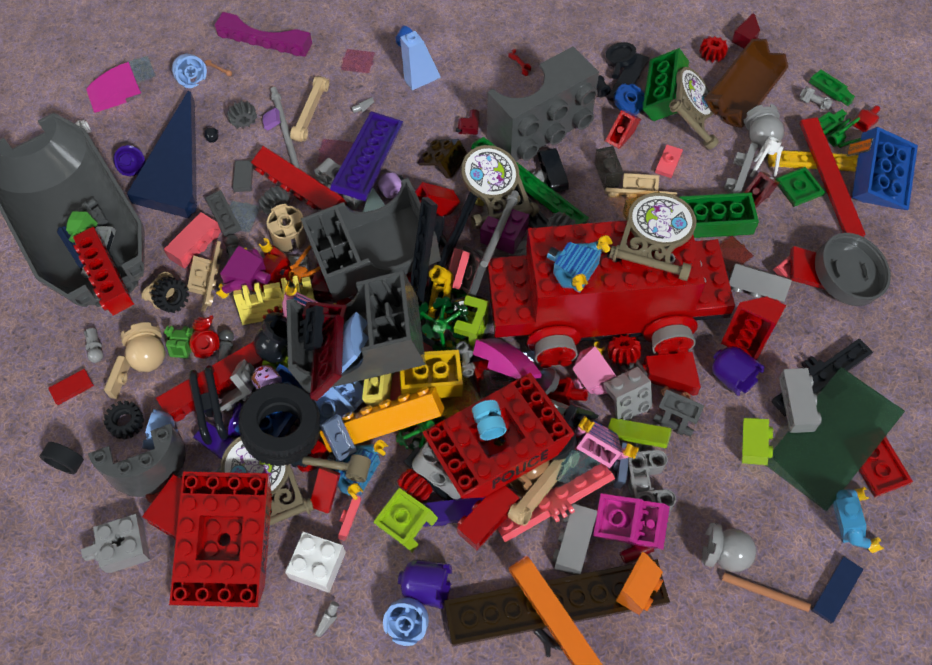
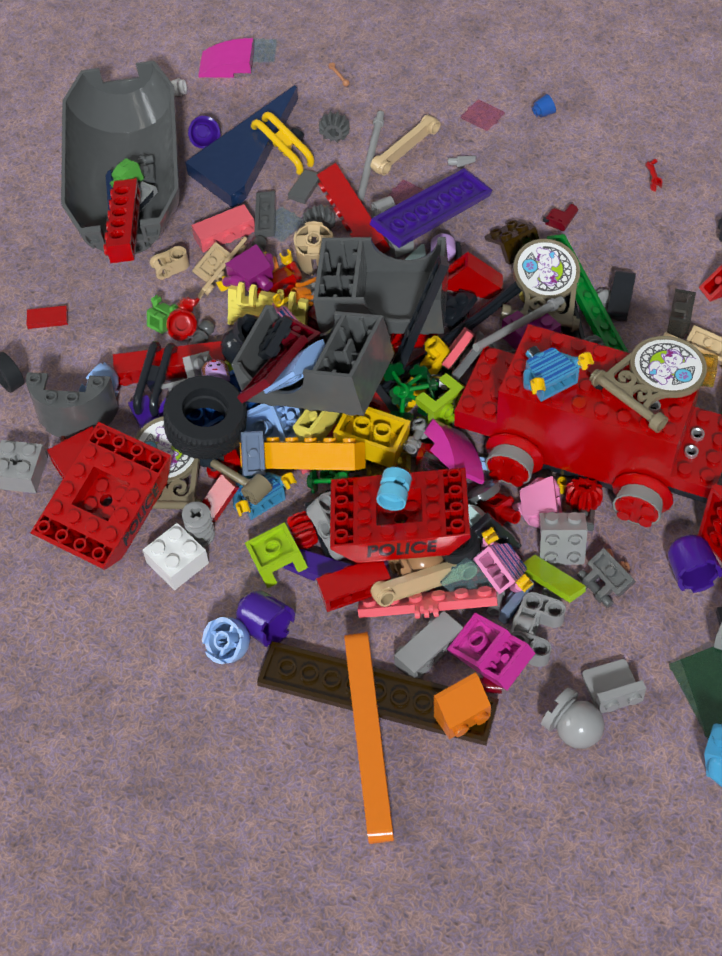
camera: 30 degrees right, 5 degrees down
(93, 345) = (84, 289): light grey pin -> none
(117, 377) = (90, 324): tan plate -> none
(132, 426) = (72, 355): black tyre -> none
(143, 347) = (126, 305): tan tile -> none
(161, 291) = (182, 276): black tyre -> none
(188, 67) = (306, 62): light blue cylinder -> none
(205, 142) = (284, 140): none -> yellow piece
(271, 119) = (361, 141): medium lavender tile -> none
(293, 41) = (423, 72): magenta arch -> none
(322, 522) = (198, 522): none -> light grey piece
(327, 619) = (160, 609): light grey bar -> none
(347, 518) = (226, 532): coral plate -> none
(417, 61) = (537, 136): light blue slope -> none
(547, 641) = (348, 721): black bar -> none
(550, 113) = (652, 231): dark grey piece -> none
(674, 371) = (625, 536): red slope -> none
(735, 503) = (613, 686): none -> light grey bracket
(756, 441) = (671, 639): lime brick -> none
(766, 592) = (593, 781): nougat bar -> none
(837, 590) = (669, 813): dark blue tile -> none

